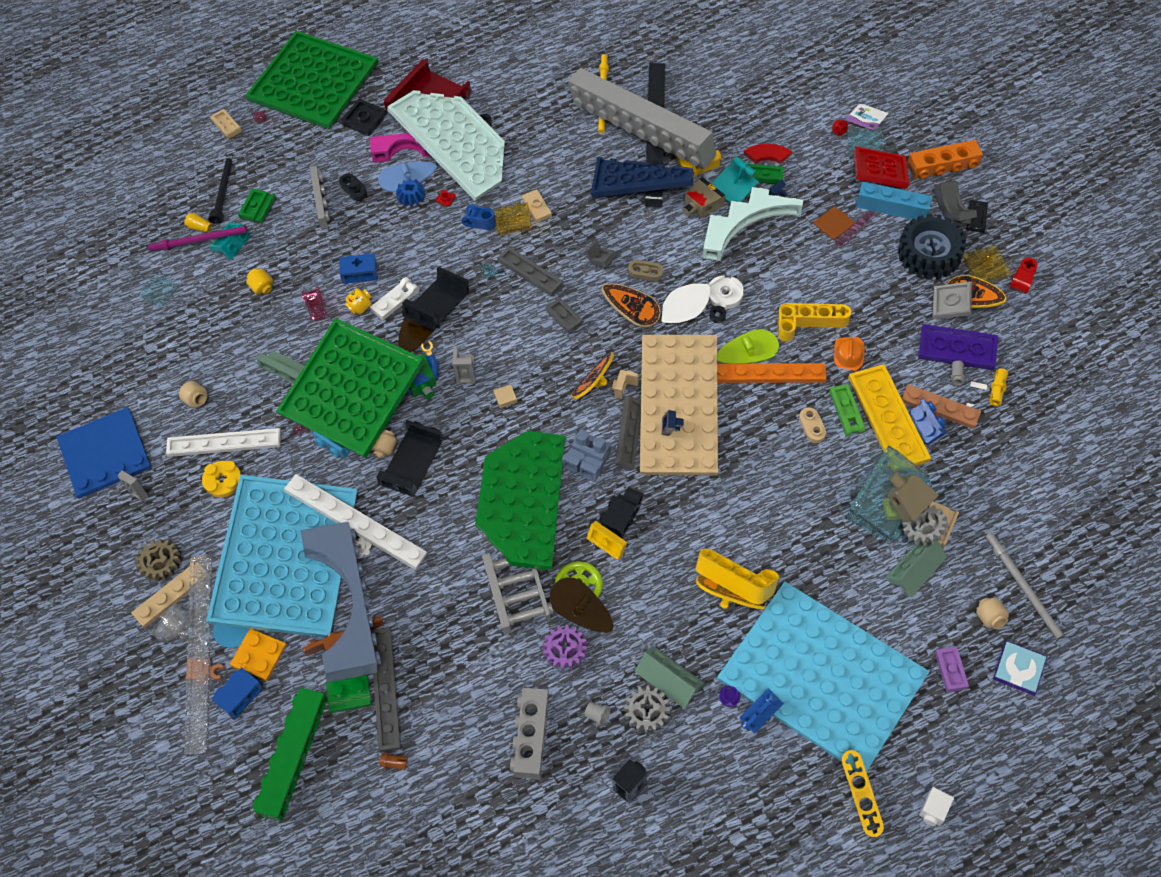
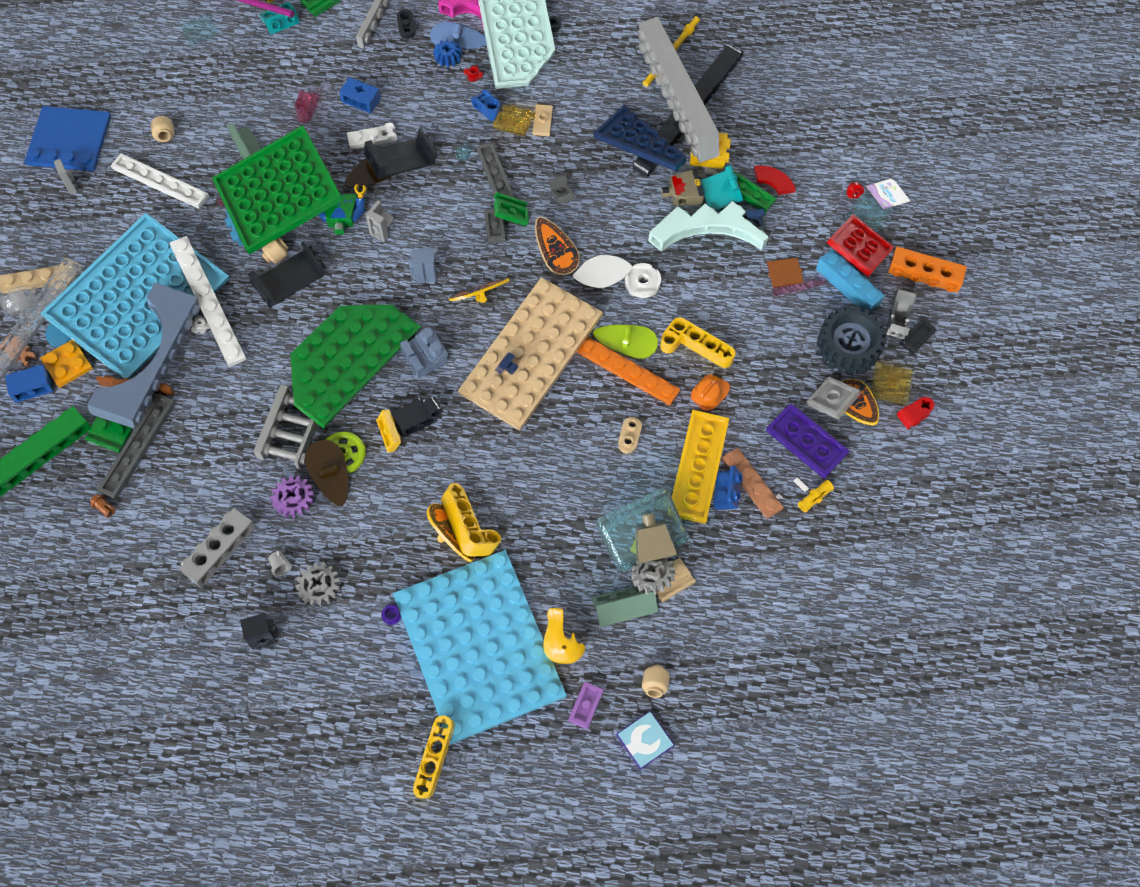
camera: 25 degrees right, 5 degrees up
(158, 560) = (46, 246): dark tan gear -> none
(214, 471) = (135, 200): yellow plate -> none
(259, 281) = (276, 64): yellow head -> none
(358, 301) = (340, 122): yellow head -> none
(505, 396) = (398, 266): tan tile -> none
(531, 381) = (422, 265): none -> sand blue brick
(569, 293) = (510, 209): none -> green plate
(624, 378) = (497, 308): tan bracket -> none
(628, 433) = (471, 354): dark grey plate -> none
(645, 270) = (592, 224): dark tan plate -> none
(668, 676) = (356, 568): sand green panel -> none
(722, 316) = (622, 290): black bush -> none
(761, 711) = (403, 641): blue hinge -> none
(847, 409) = (668, 438): bright green plate -> none
(889, 629) = (556, 645): none -> yellow piece
(936, 807) = (484, 806): white brick -> none
(957, 377) = (791, 460): light grey pin -> none
(1001, 551) = (705, 636): light grey bar -> none

